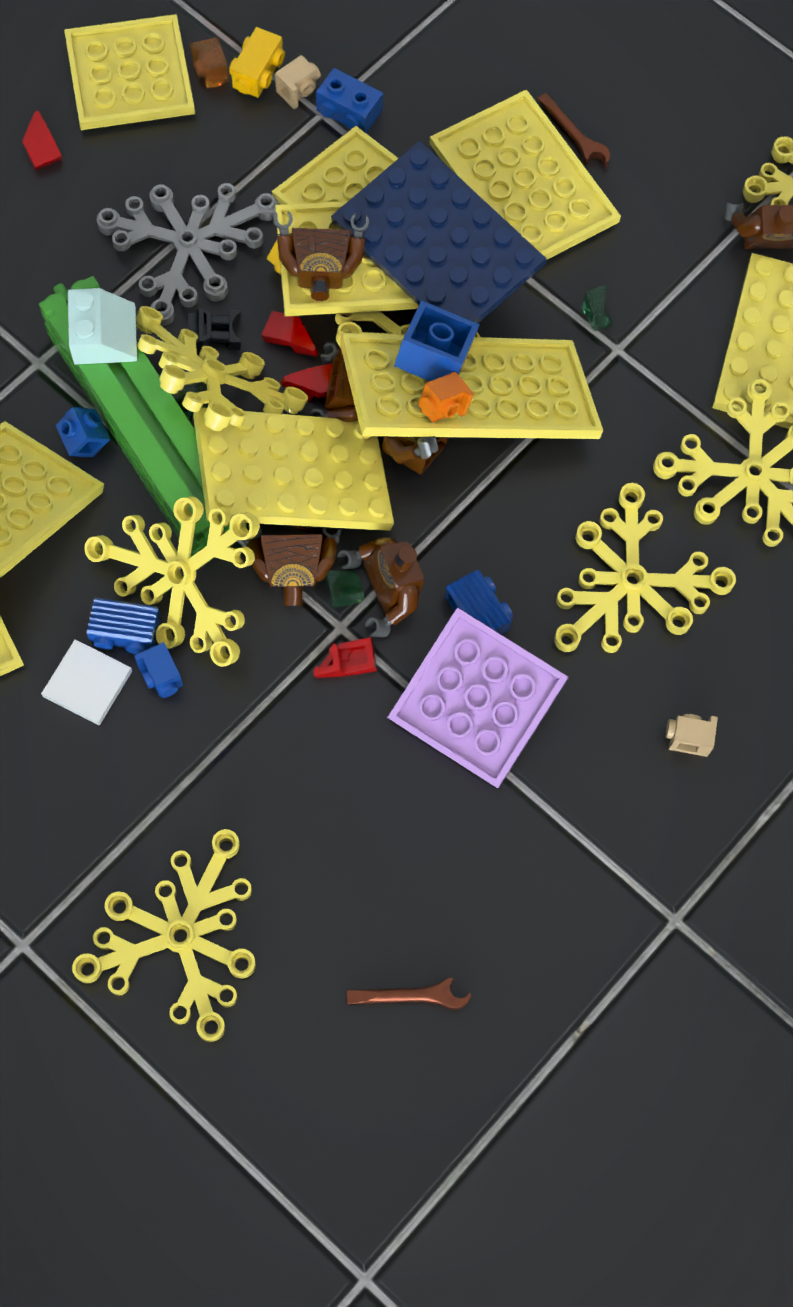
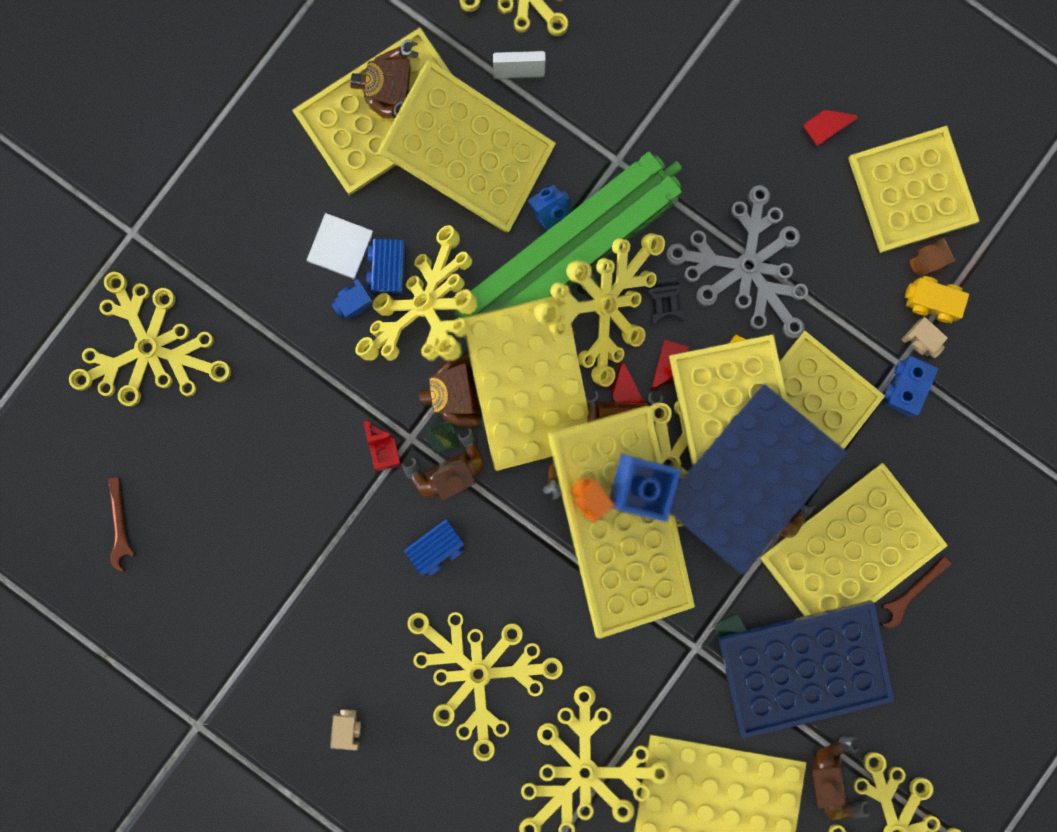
camera: 85 degrees right, 15 degrees up
(101, 327) = (627, 206): light aqua slope -> none
(320, 256) = (719, 379): reddish brown torso -> none
(478, 697) = (353, 554): lavender plate -> none
(651, 236) = (806, 669): none -> dark blue plate

